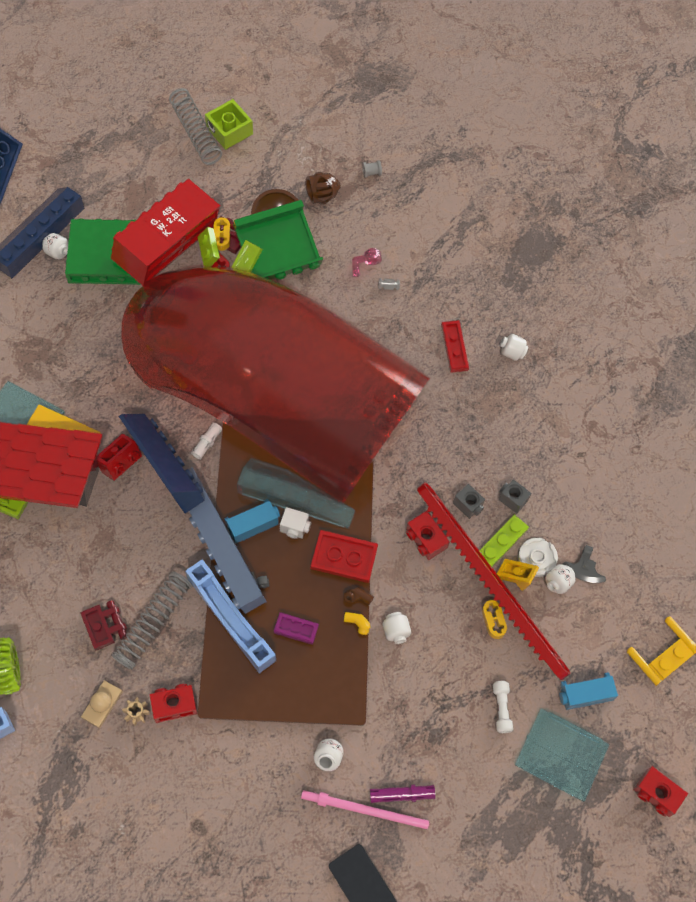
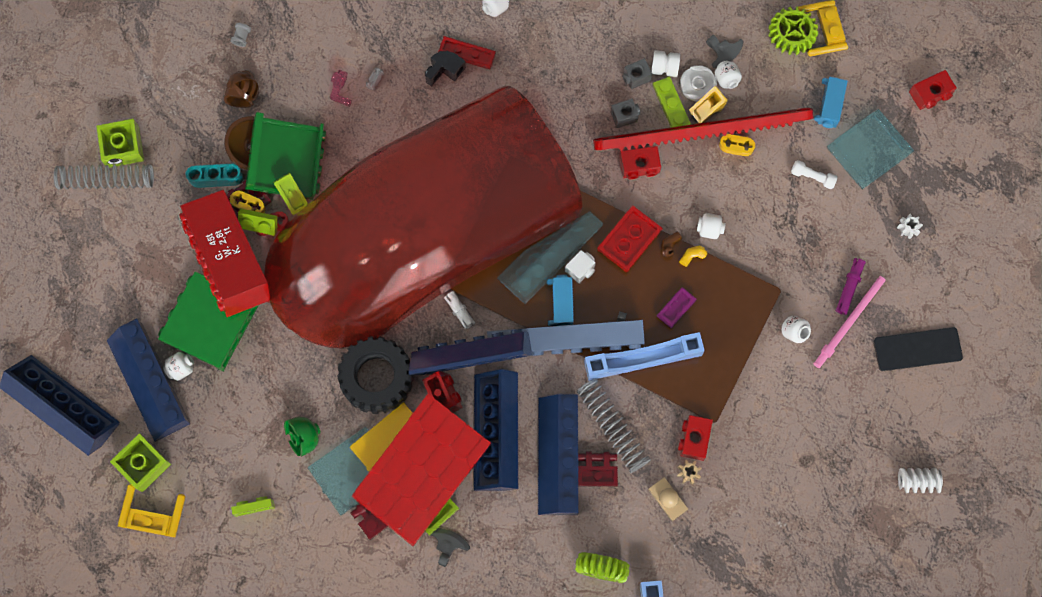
camera: 60 degrees left, 10 degrees up
(33, 362) = (302, 434): none -> green cylinder
(104, 375) = (366, 351): none -> black tyre
(104, 520) = (498, 423): none -> dark blue slope
(104, 583) = (558, 455): none -> dark blue slope
(234, 198) = (207, 171): none -> teal beam
(432, 330) = (444, 63): none -> black brick
(498, 823) = (906, 229): none -> white gear
(538, 515) = (665, 63): none -> white wheel
(658, 625) = (790, 21): none -> lime gear

